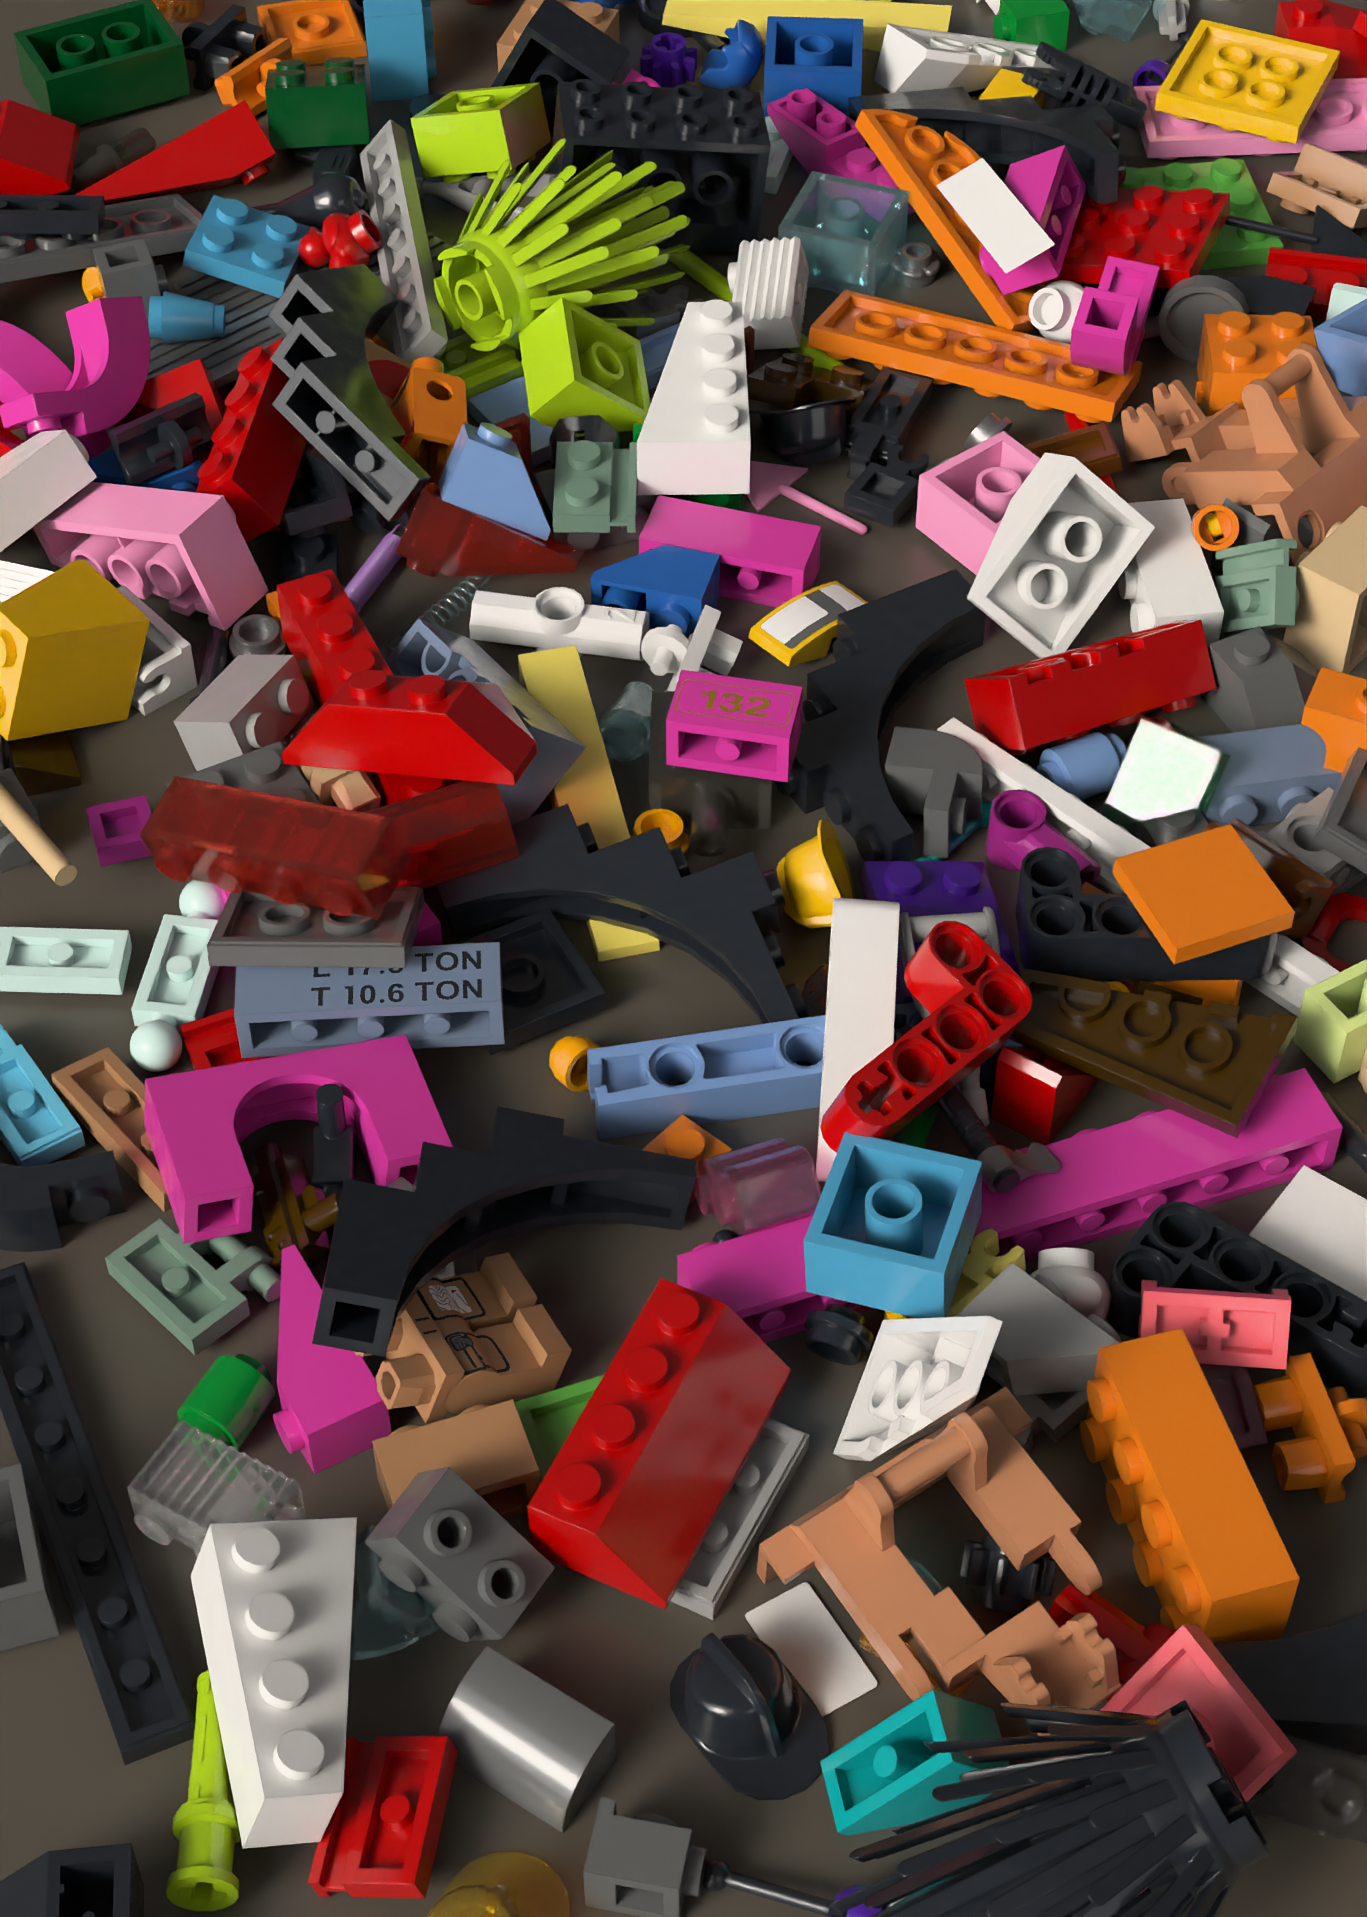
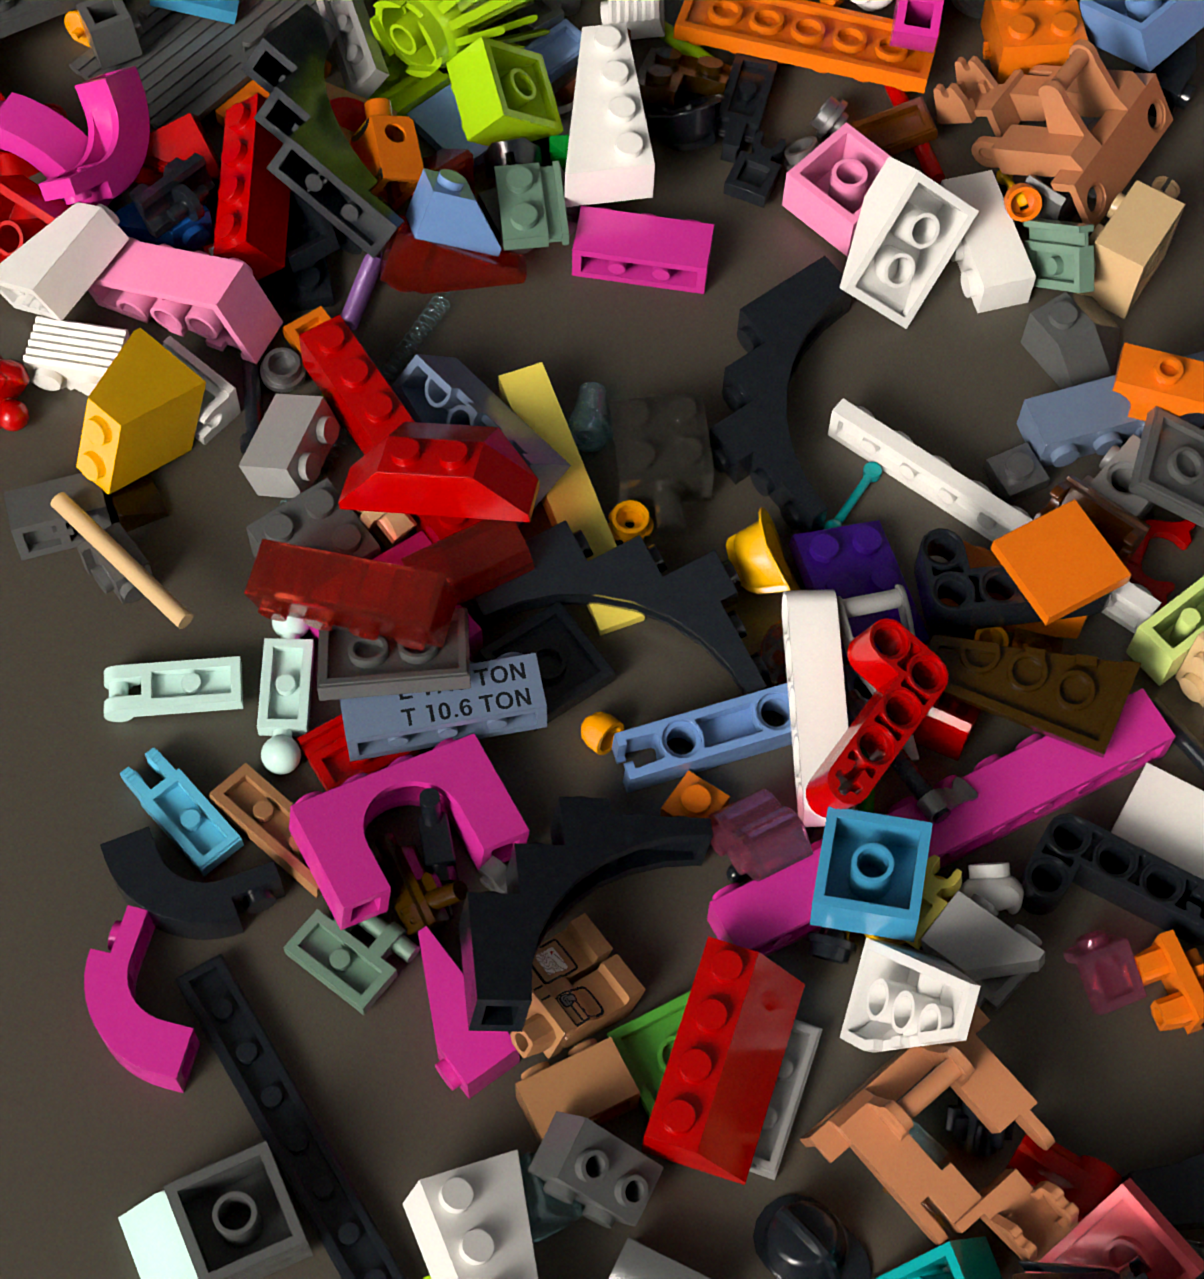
camera: 10 degrees left, 15 degrees up
(117, 829) = (214, 561): magenta plate -> none
(184, 318) = (162, 58): dark azure cone -> none
(205, 1483) = (404, 1137): clear brick -> none
(229, 1399) = (397, 1059): green brick -> none
(558, 620) = (544, 333): white piece -> none
(665, 582) = (593, 293): blue slope -> none
(671, 651) = (623, 353): white hips -> none
(734, 725) = (684, 437): dark pink brick -> none
(771, 479) = (665, 166): bright pink piece -> none
(805, 624) = (714, 309): slope -> none
(812, 1647) = (848, 1195): white sticker -> none
(935, 778) = (836, 449): dark grey brick -> none
(1021, 826) = (922, 507): magenta piece -> none
(1084, 764) = (944, 426): medium blue brick -> none
(1091, 687) = (941, 357): red wedge -> none
(1164, 774) = (1010, 433): clear green slope -> none
(1185, 1492) = (1100, 1059): orange brick -> none
(1221, 1324) = (1105, 922): coral hinge -> none

